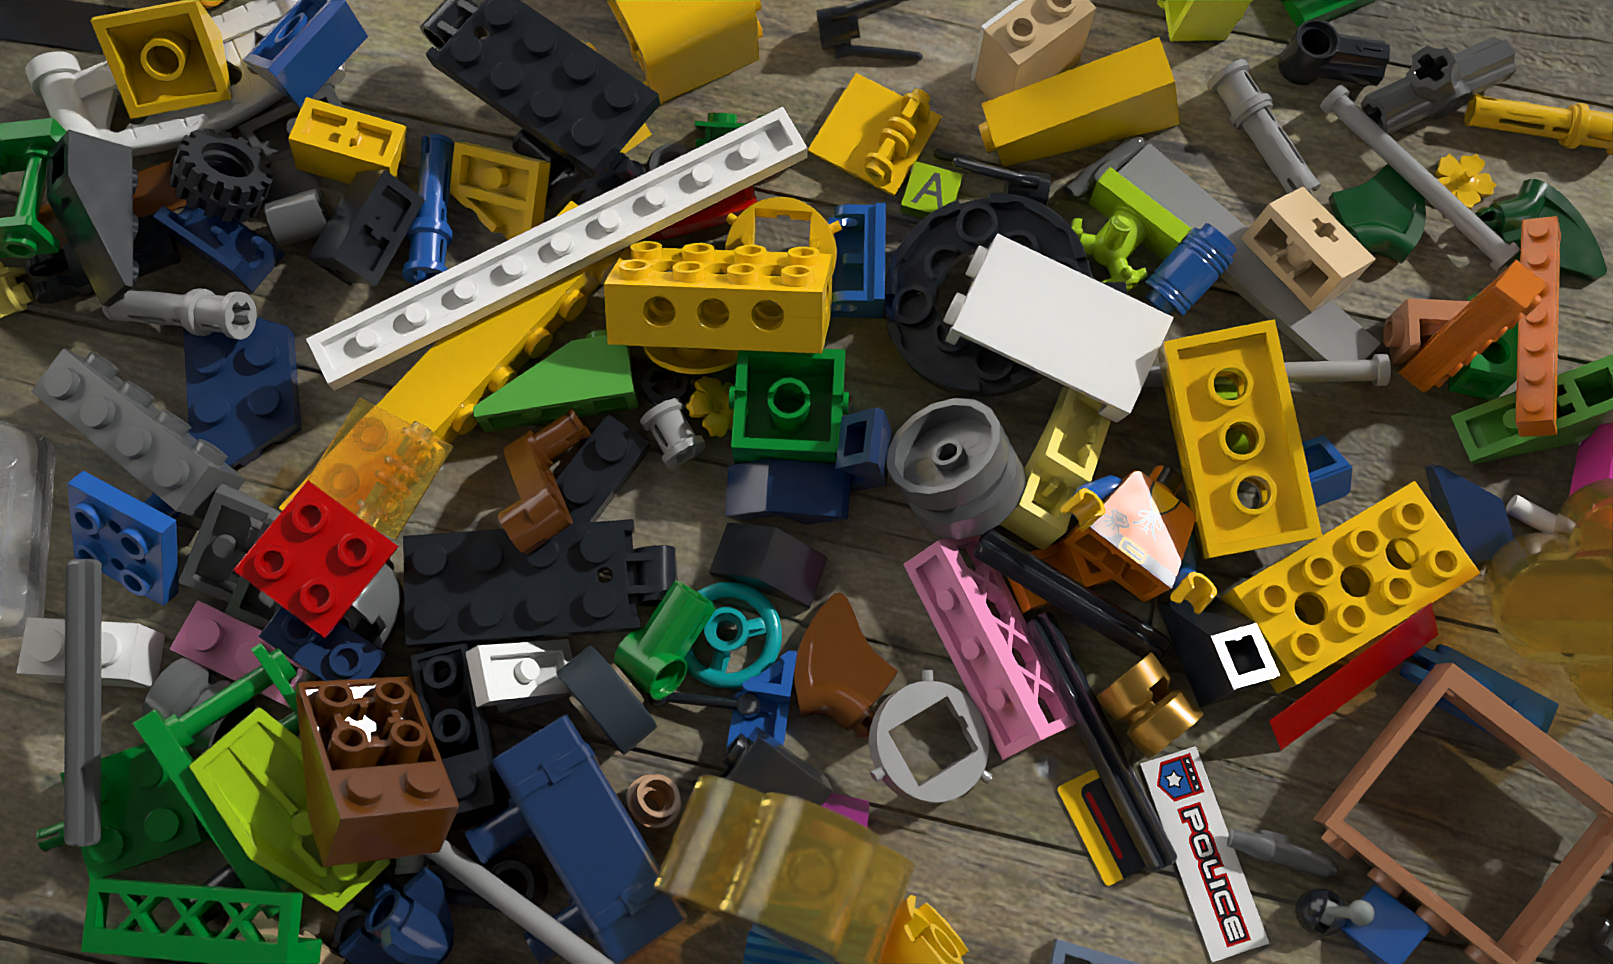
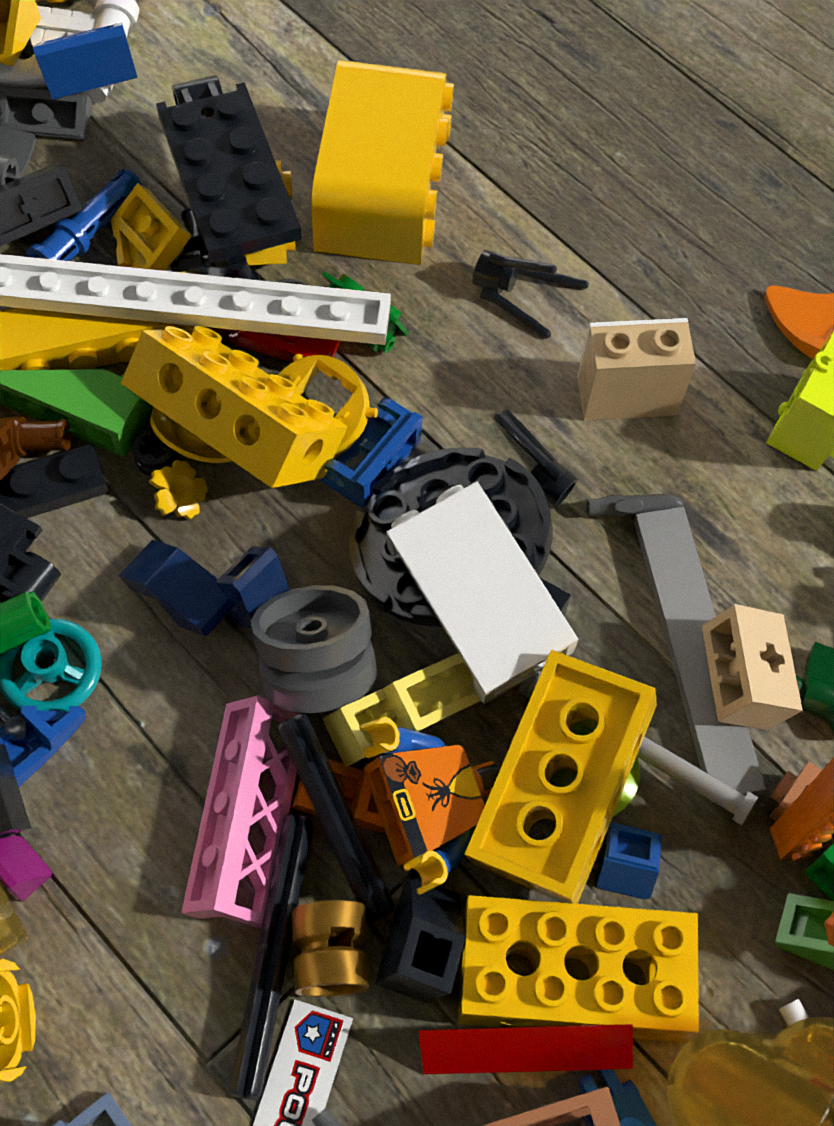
camera: 30 degrees right, 10 degrees down
(344, 142) = (61, 137): yellow hinge -> none
(673, 432) = (128, 487): light grey bush -> none
(769, 562) = (125, 635): black slope -> none
(788, 405) = (224, 514): green brick -> none
(839, 670) = (110, 752): reddish brown arm -> none
(876, 133) = (466, 368): yellow hinge -> none
(929, 189) = (476, 431): lime tile -> none
(952, 780) = (126, 898): light grey piece -> none
(1084, 106) = (647, 444): yellow slope -> none
(1101, 827) = (219, 1029): sticker -> none
(1131, 222) = (618, 558): lime piece -> none
(1190, 270) = (636, 623): blue head -> none
(1252, 113) = (791, 539): light grey pin -> none
(1471, 513) = (742, 986): dark blue slope -> none

